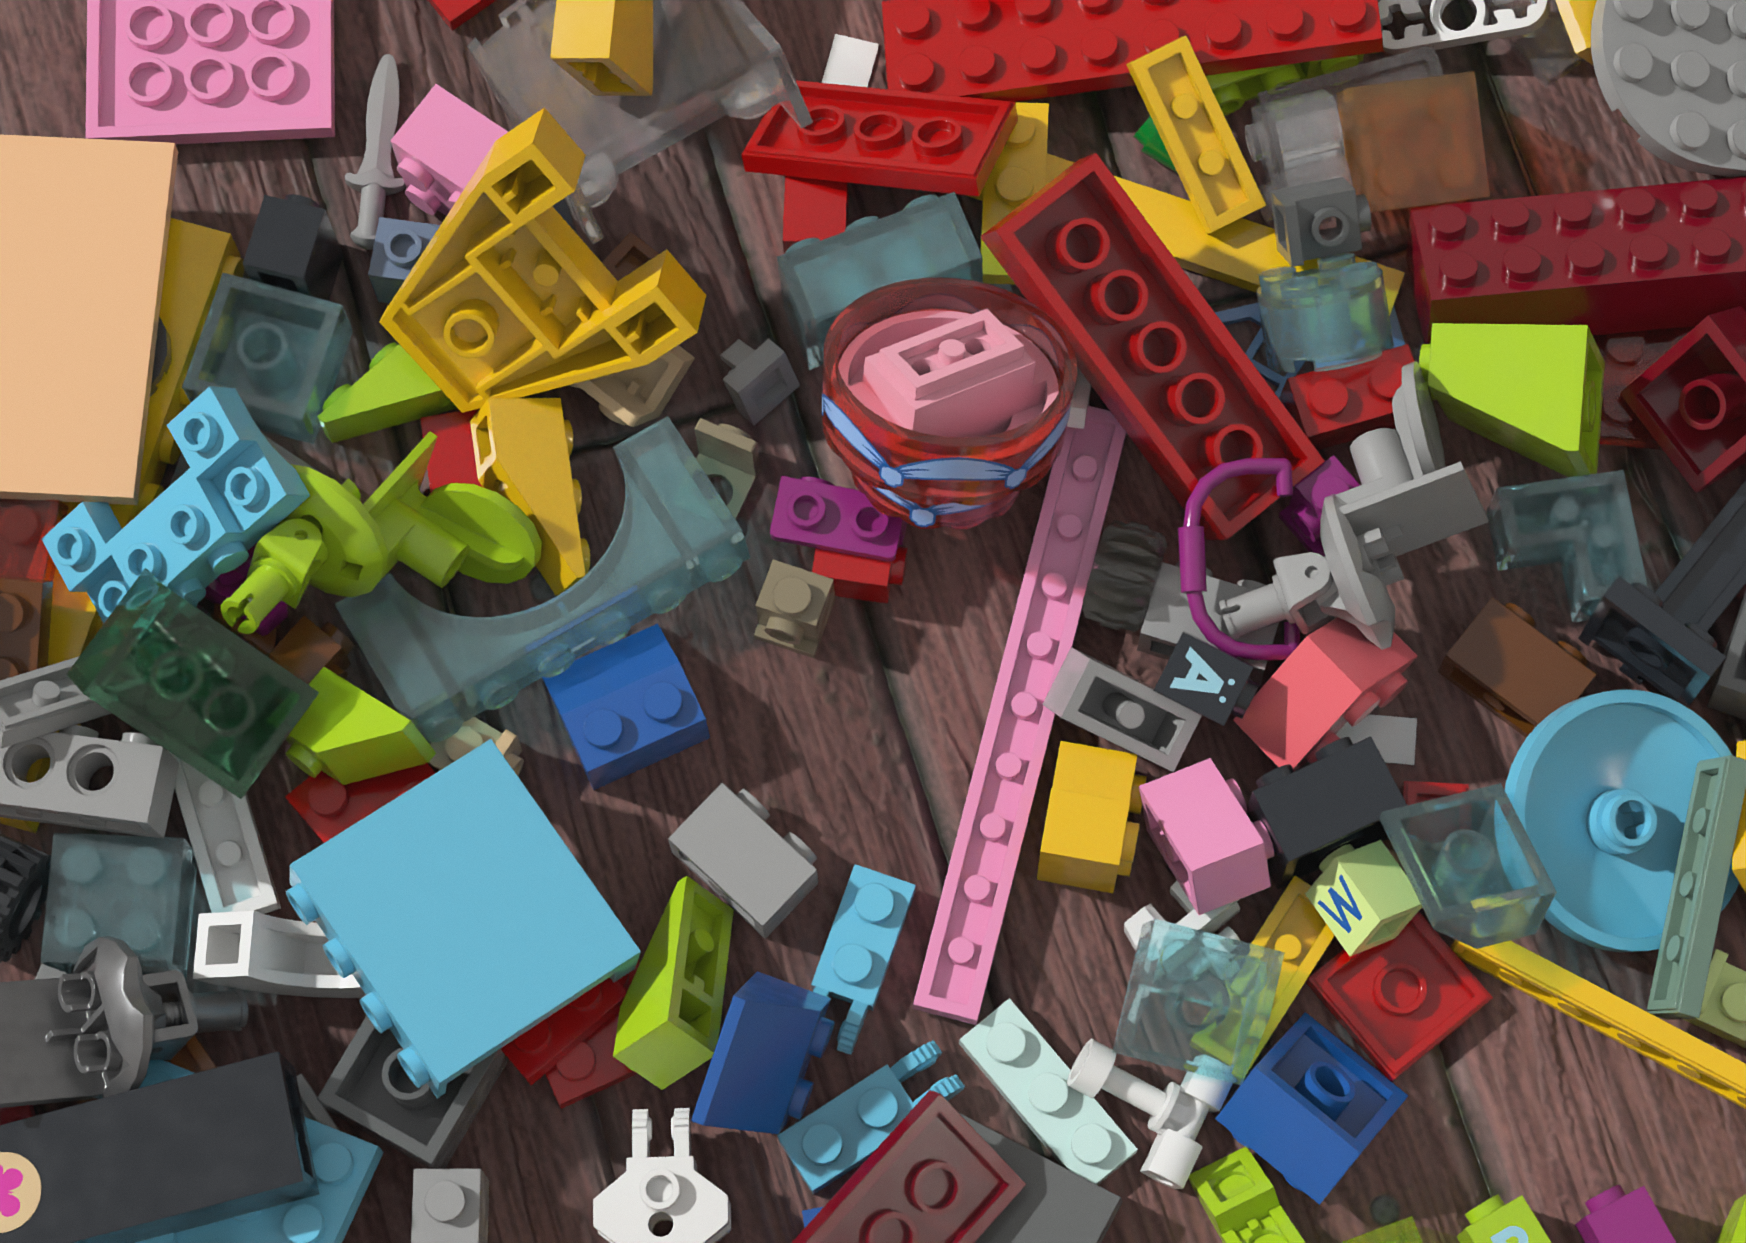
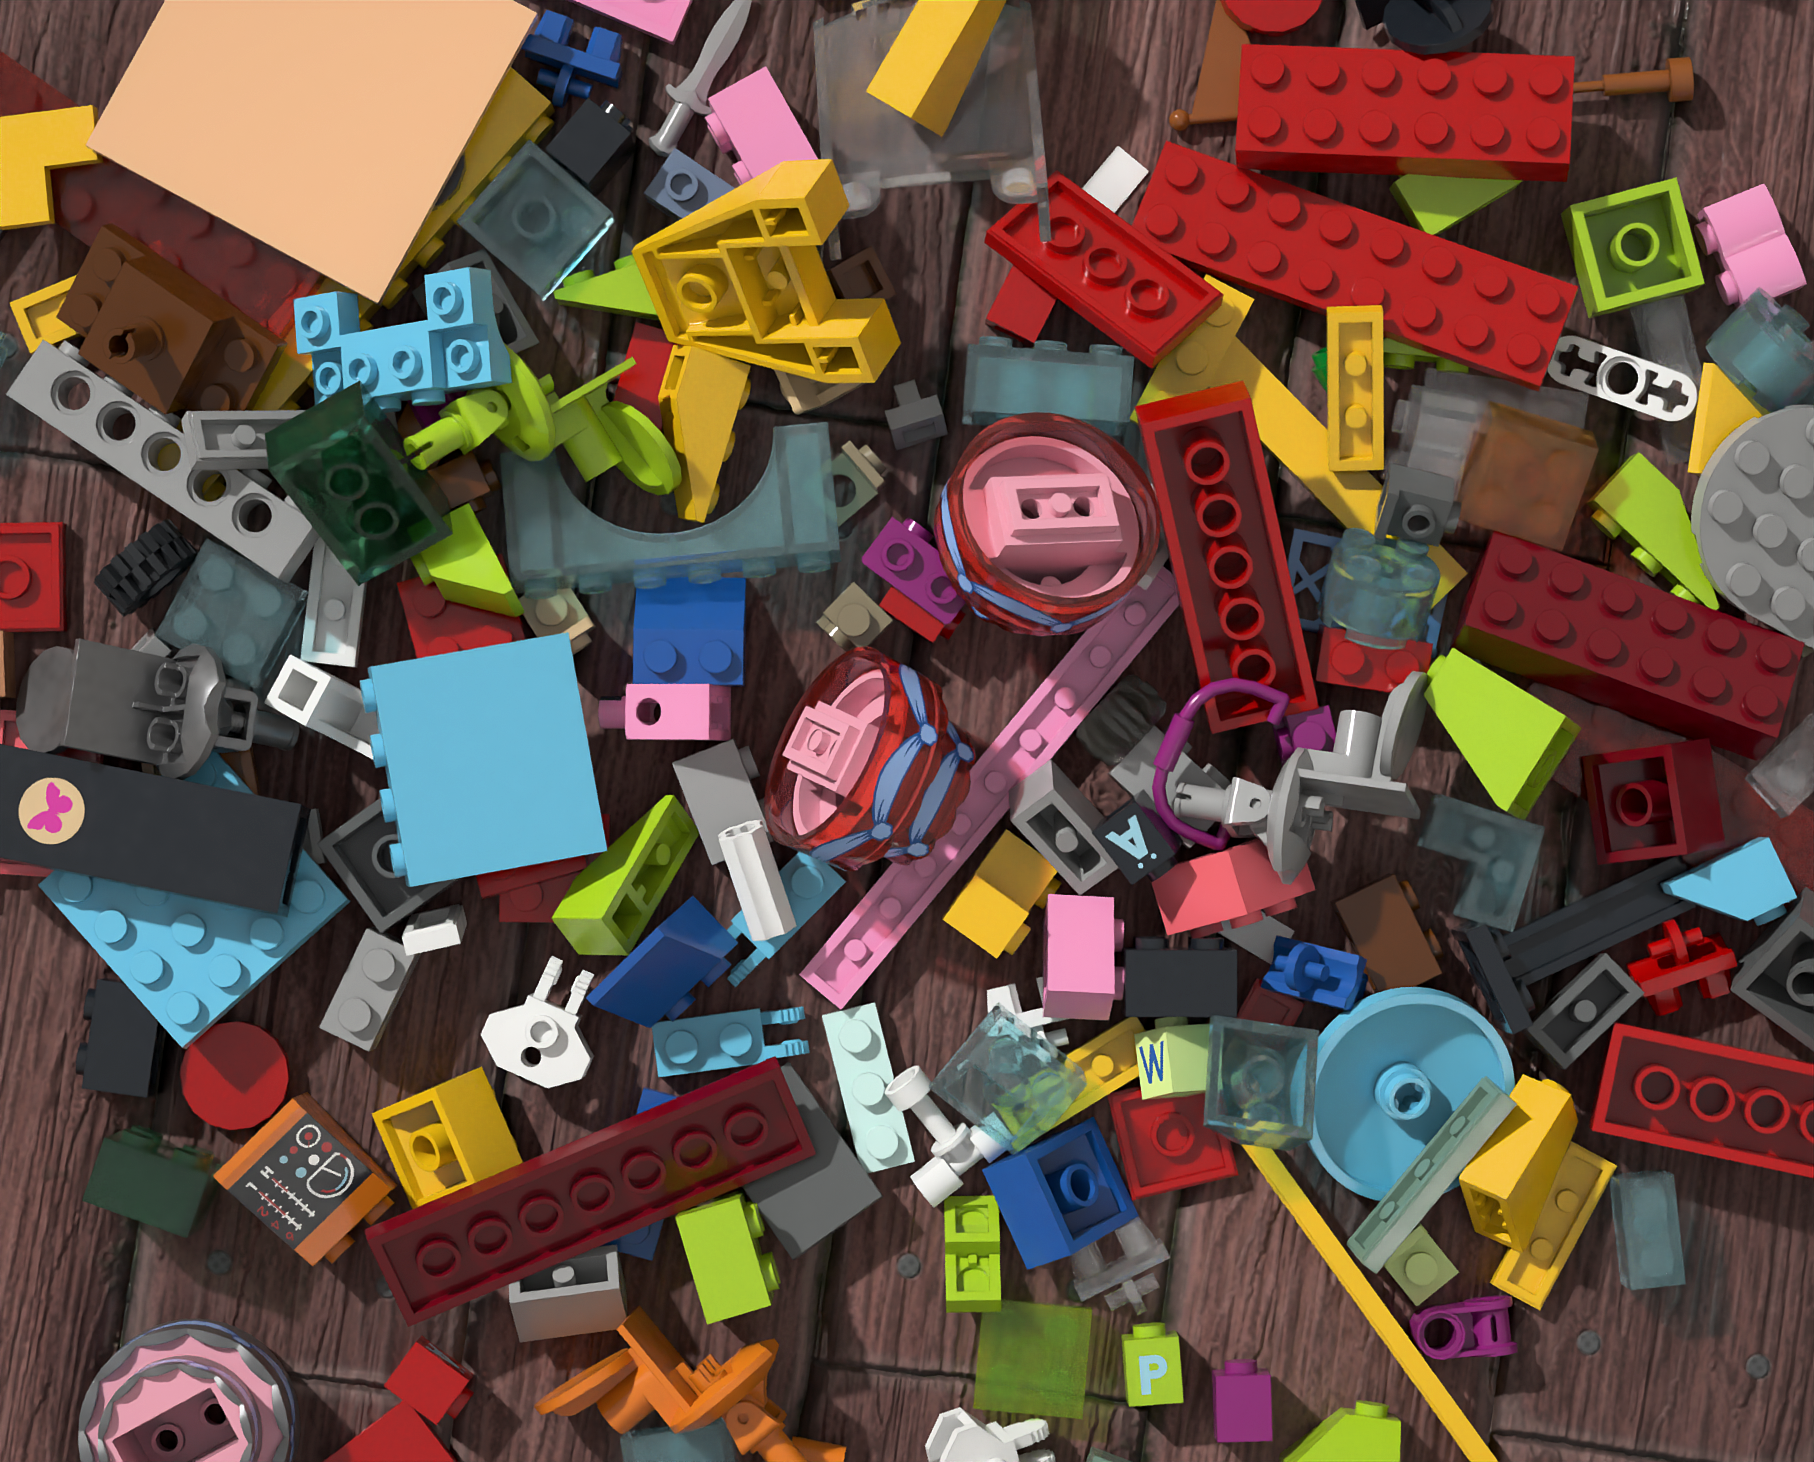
camera: 20 degrees right, 15 degrees up
(233, 197) = (597, 63): none -> blue hips
(490, 1136) = (434, 929): none -> white tile
(665, 785) = (687, 712): none -> bright pink torso
(819, 915) = (757, 880): none -> white axle
(880, 730) = (867, 765): none -> piece
(1430, 1127) = (1141, 1254): none -> clear hips
(1463, 737) = (1316, 974): none -> blue hips
(1565, 137) = (1653, 521): none -> lime slope

